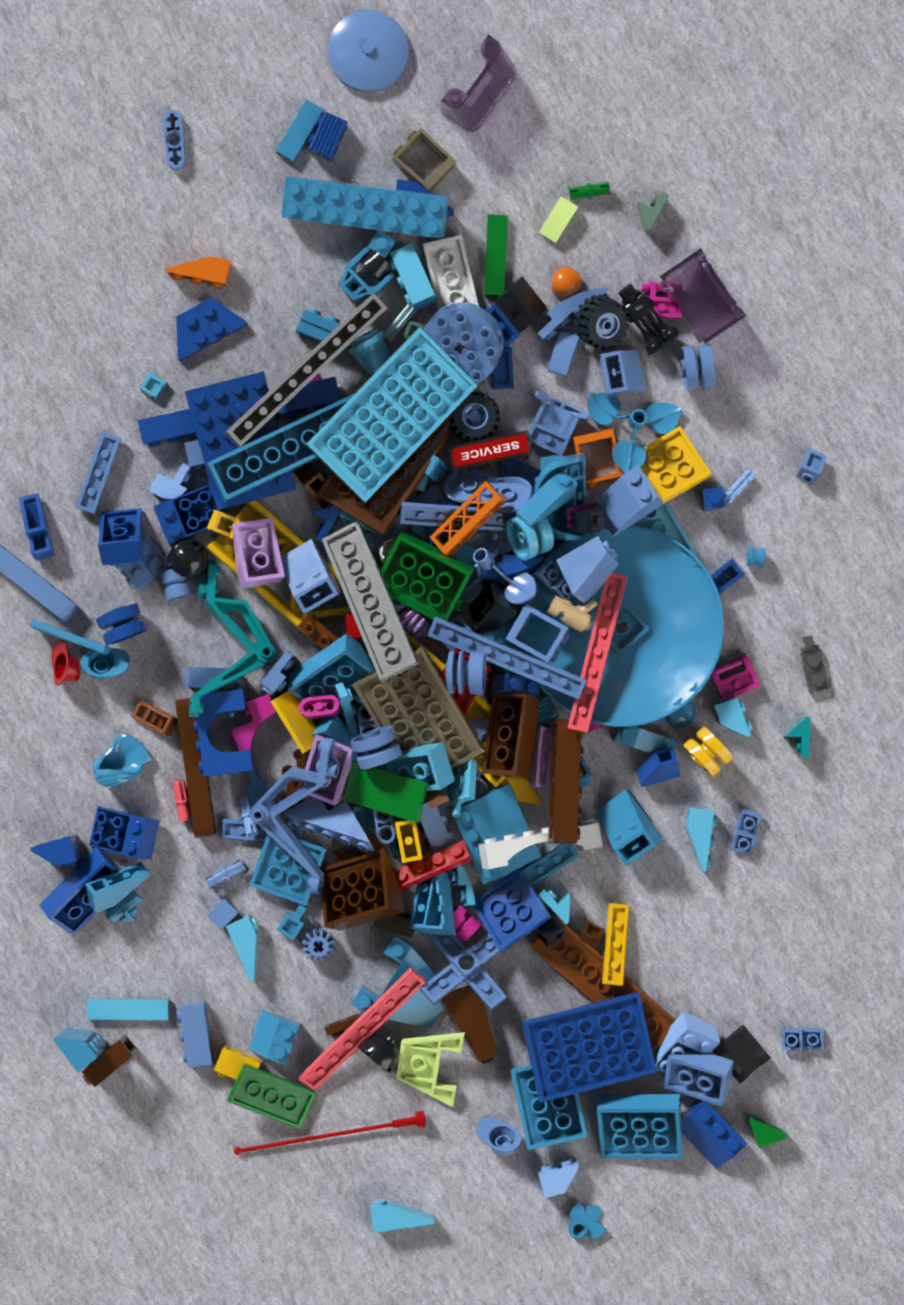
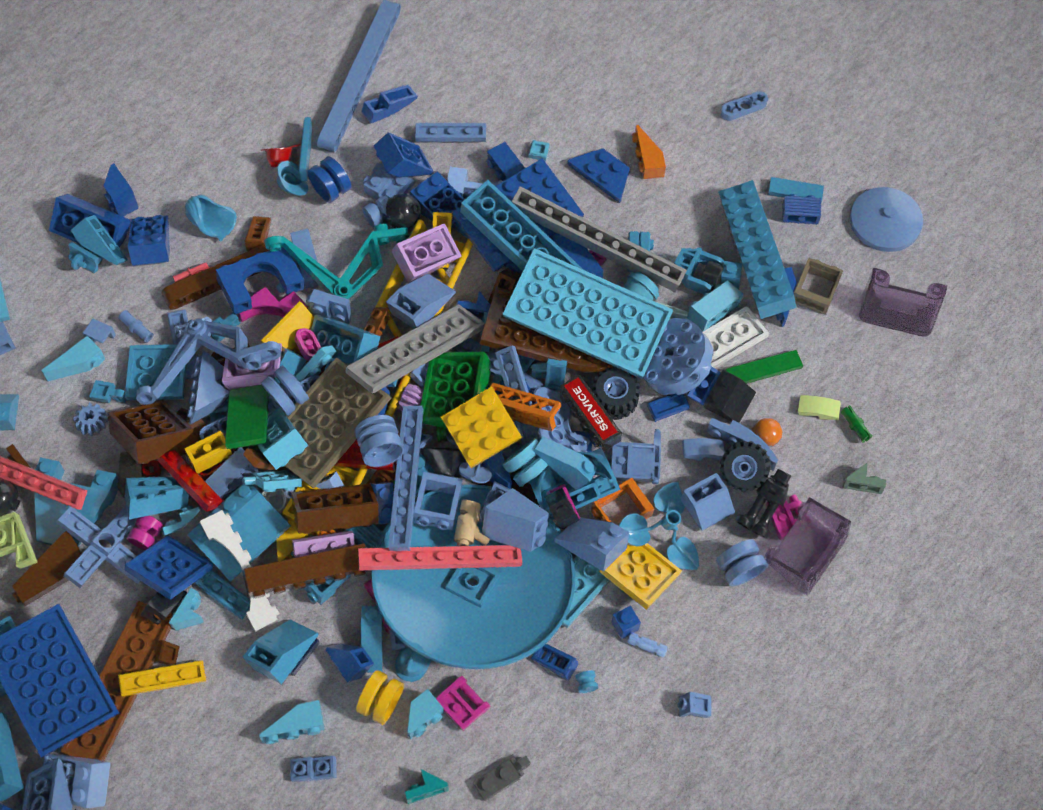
camera: 70 degrees right, 25 degrees down
(483, 567) = (481, 427): none -> yellow plate
(518, 470) = (582, 442): none -> medium blue piece

